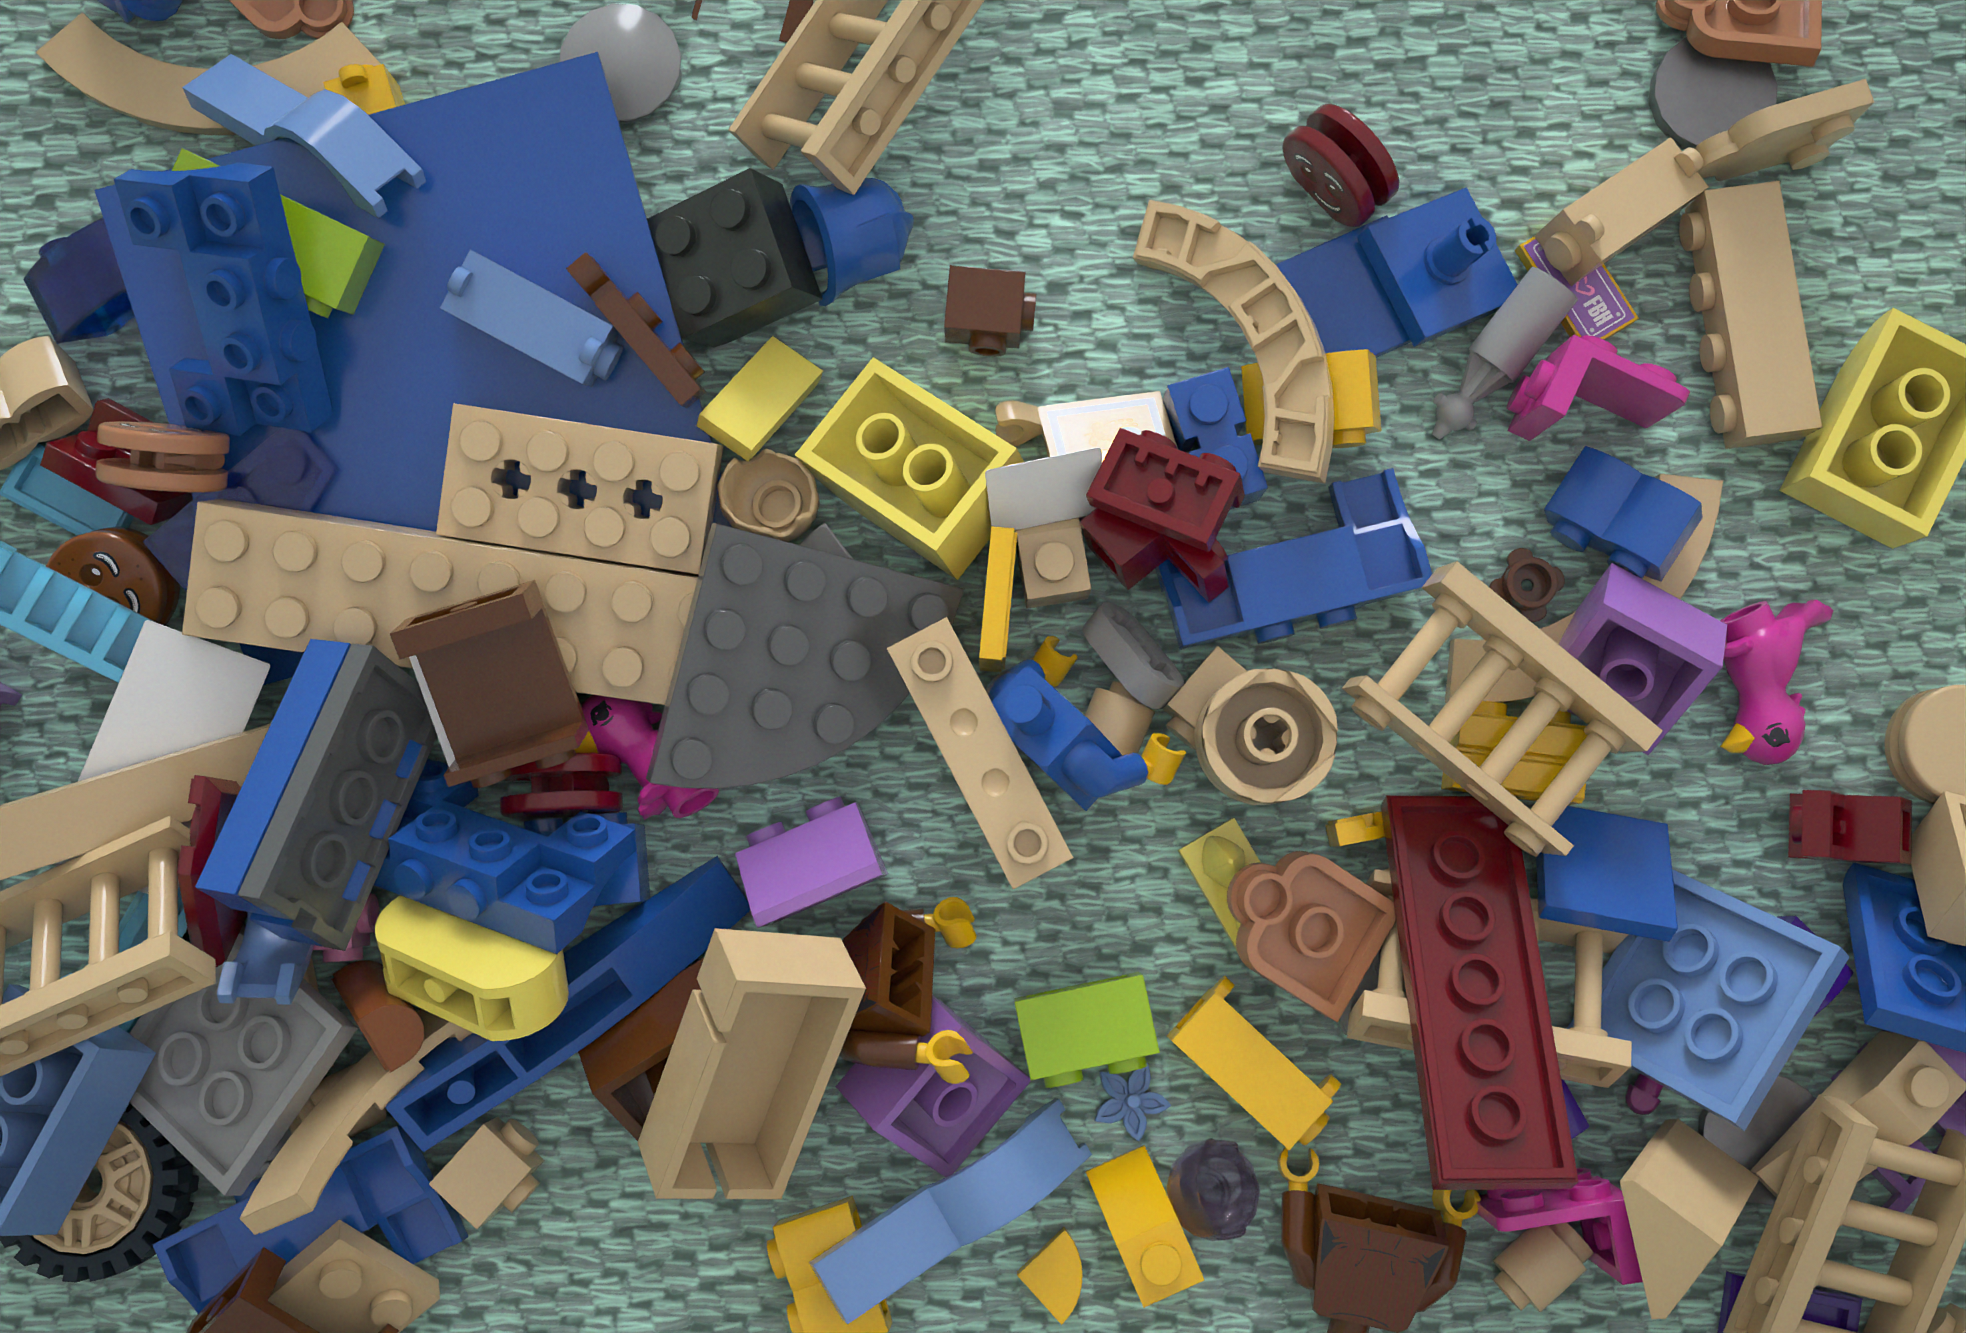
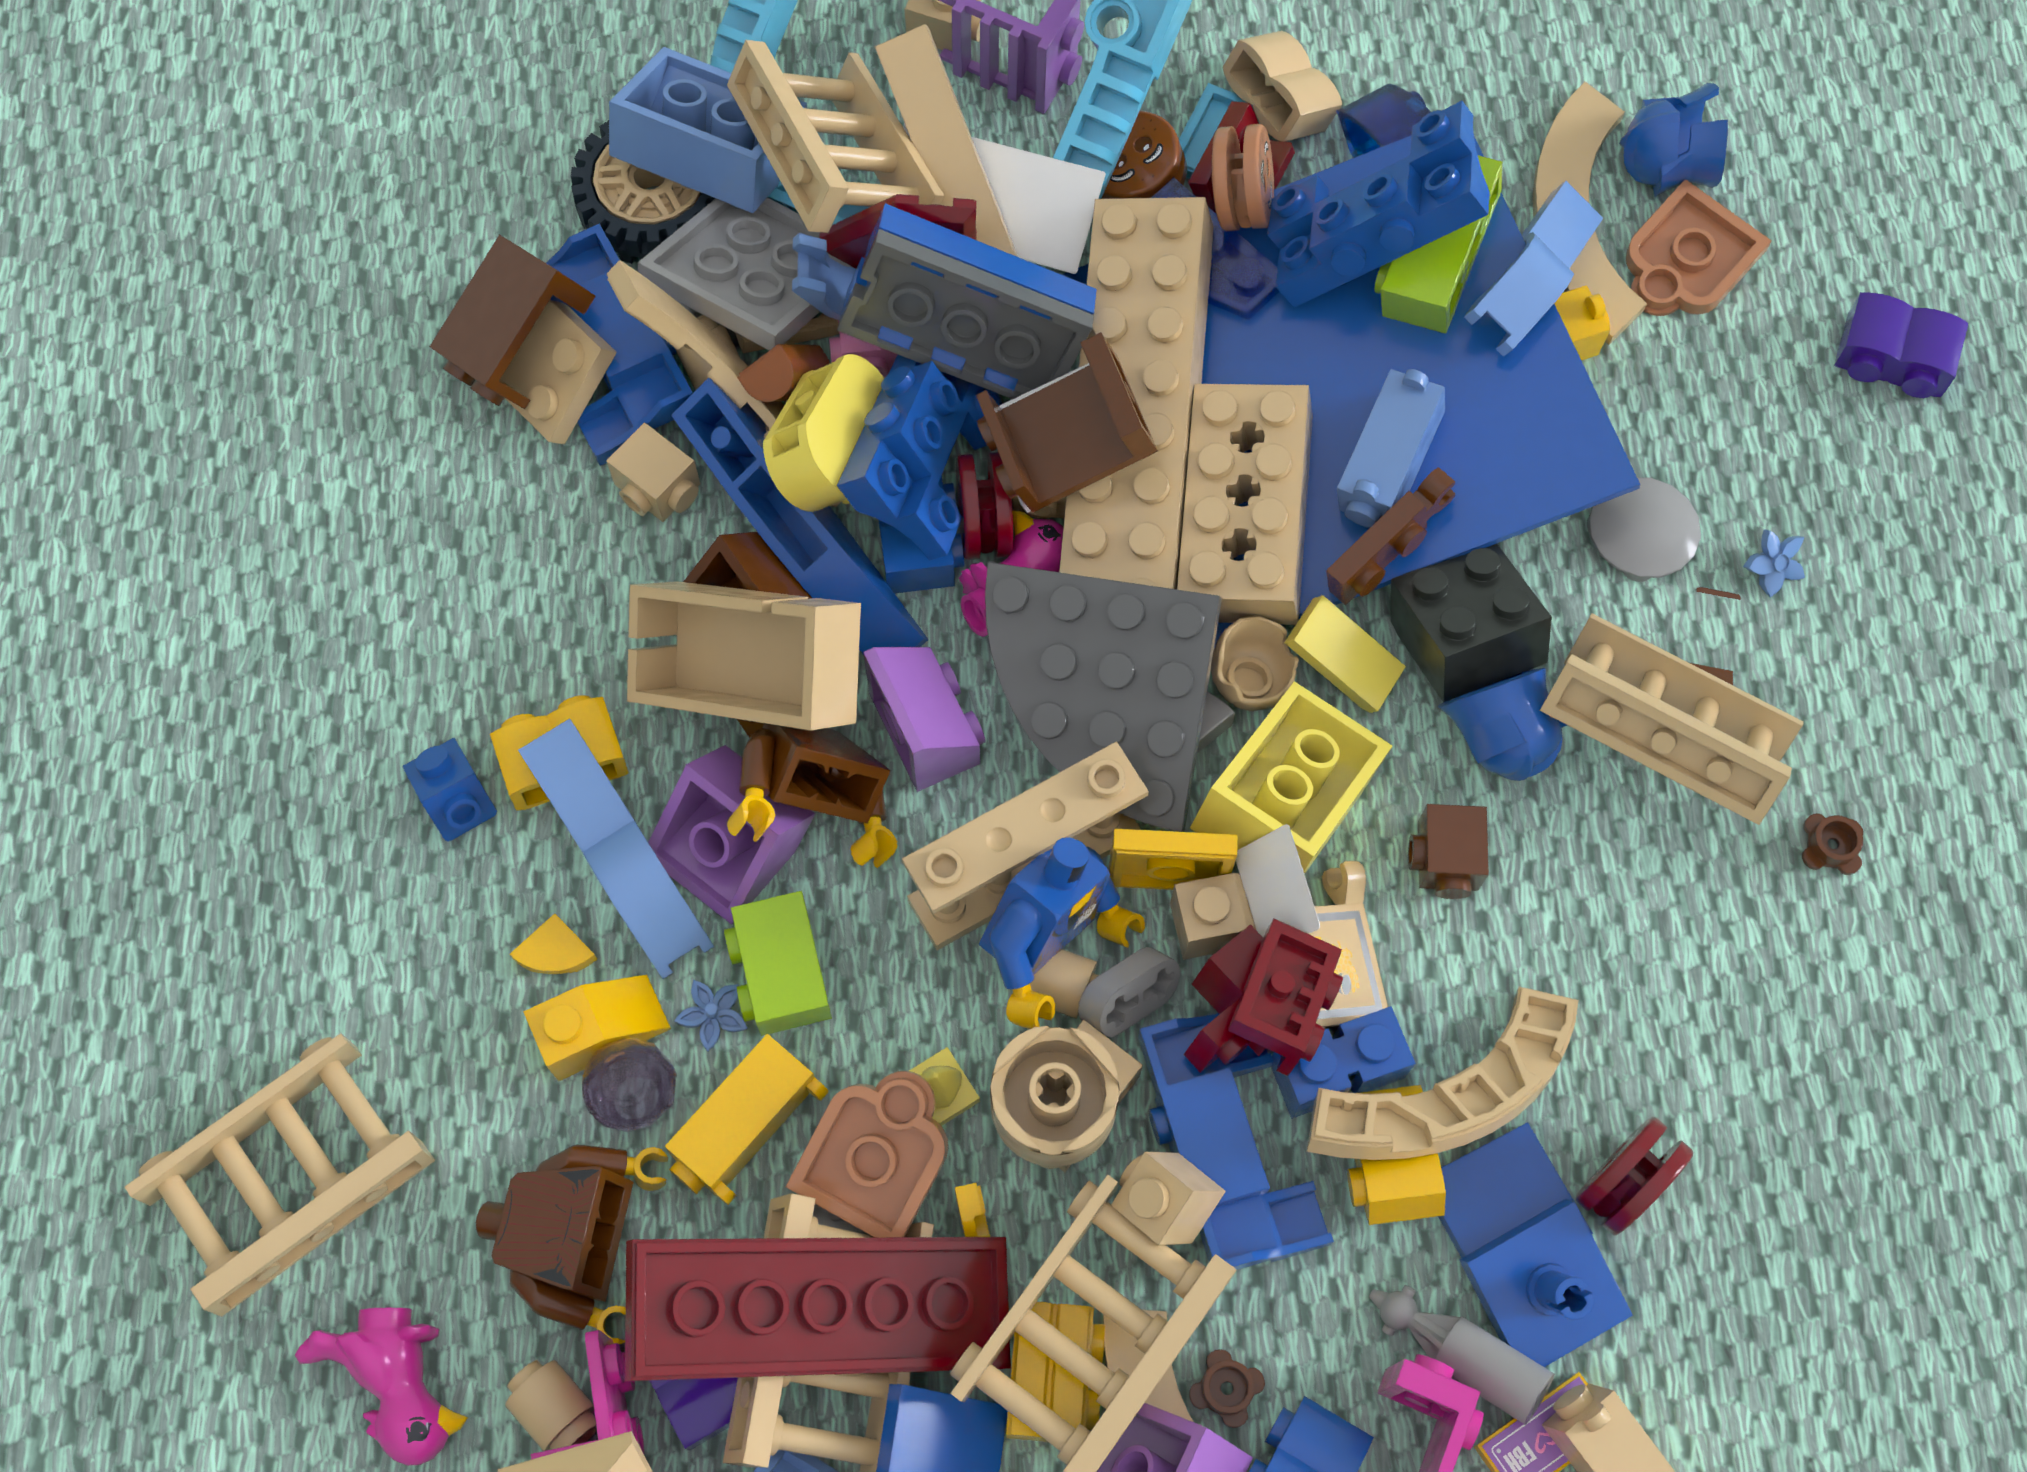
camera: 85 degrees right, 15 degrees down
(1368, 629) = (1166, 1197): none -> tan brick

